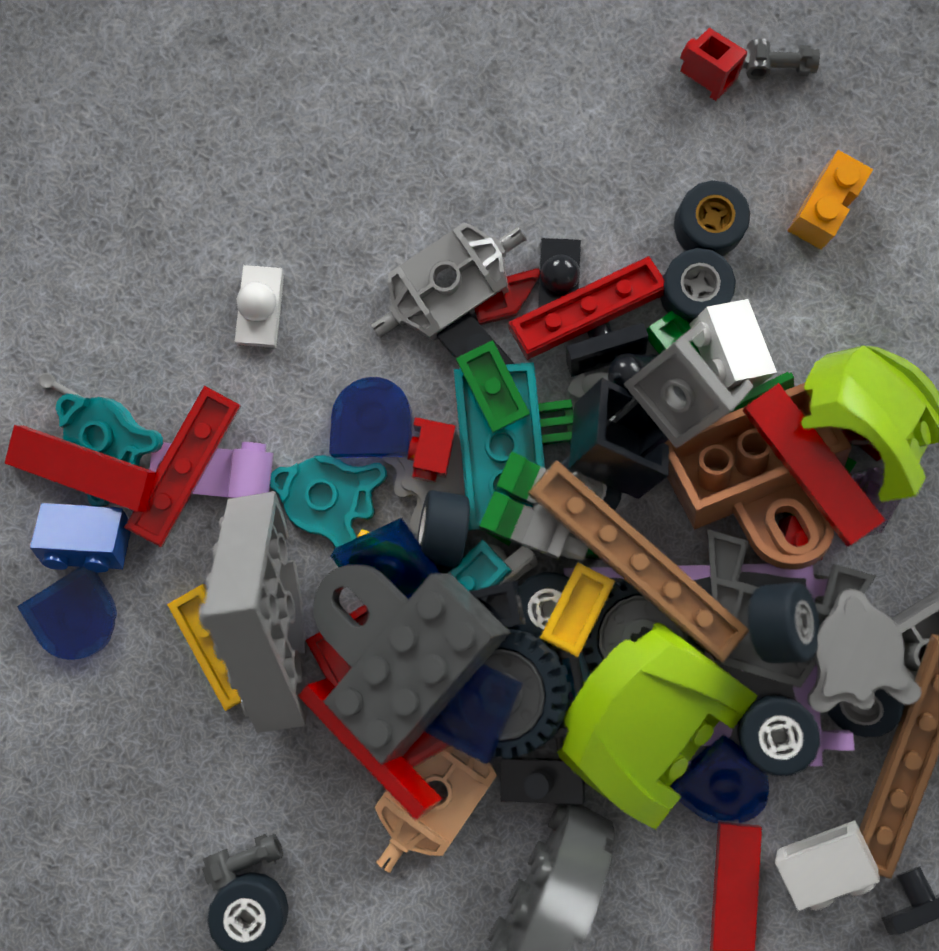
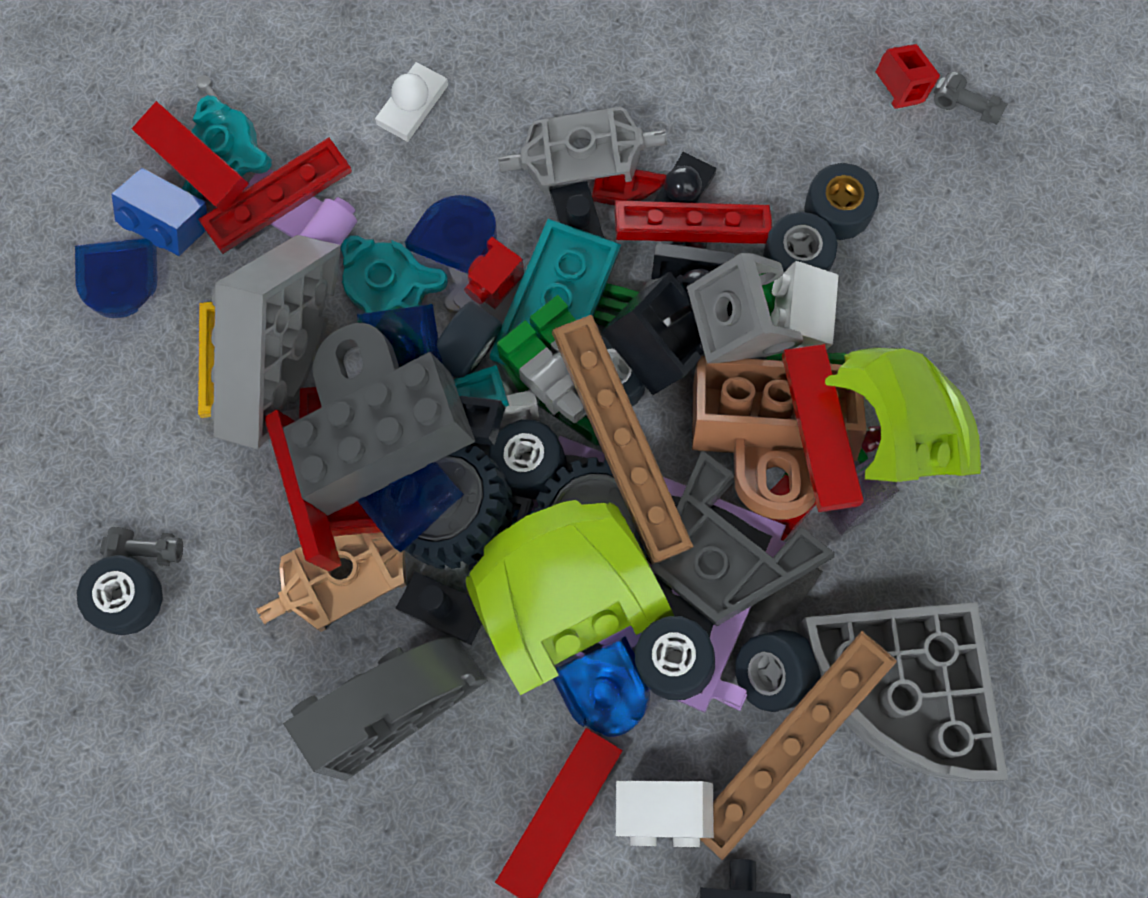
camera: 25 degrees right, 10 degrees down
(492, 386) = (572, 242): green plate -> none
(577, 609) = (548, 461): yellow tile -> none
(783, 623) = (724, 548): black wheel -> none
(829, 198) = (959, 225): light orange brick -> none
(858, 655) = (781, 614): light grey tile -> none

